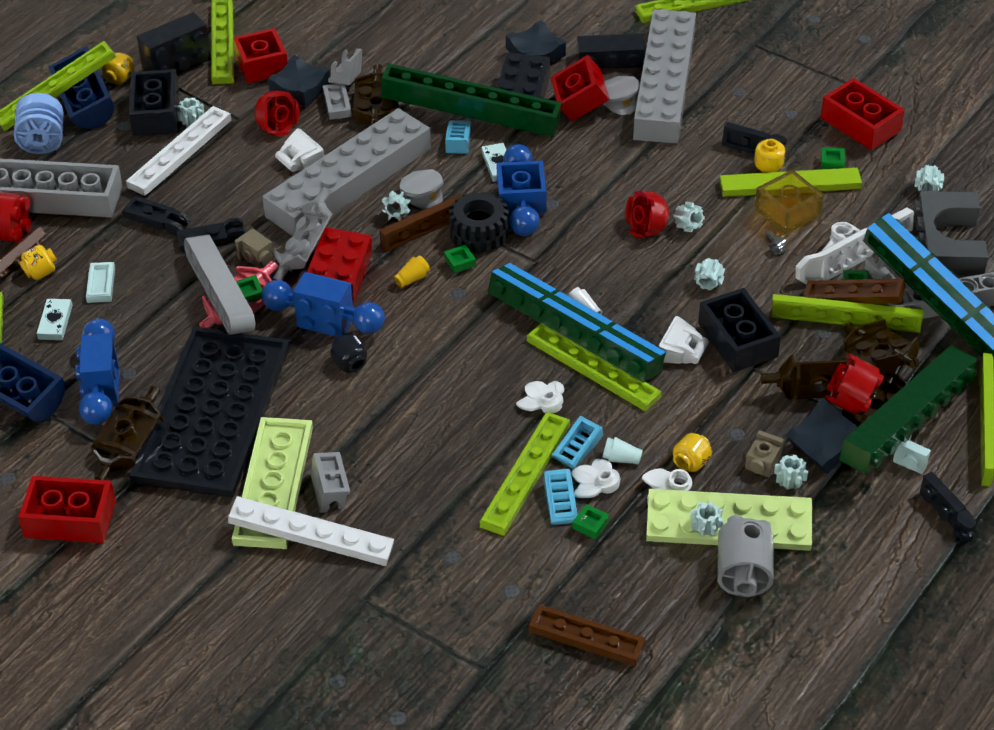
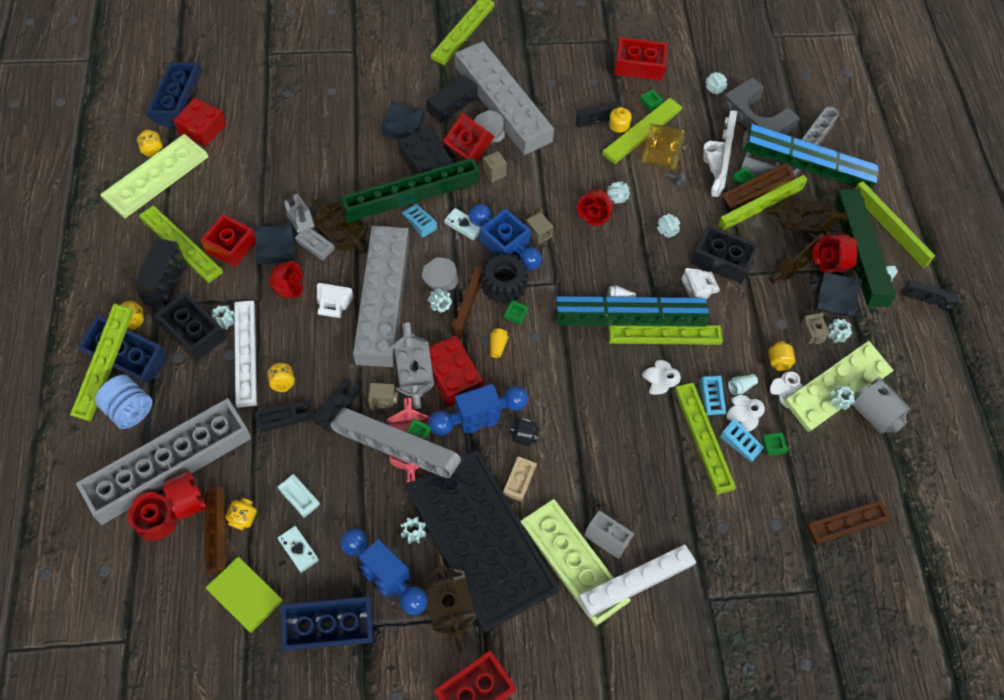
camera: 45 degrees left, 15 degrees up
(160, 364) = (415, 536): none -> light aqua gear
(186, 184) = (280, 377): none -> yellow head
(302, 388) = (519, 479): none -> tan plate
(567, 203) = (540, 228): none -> dark tan brick
(583, 128) = (494, 166): none -> dark tan brick

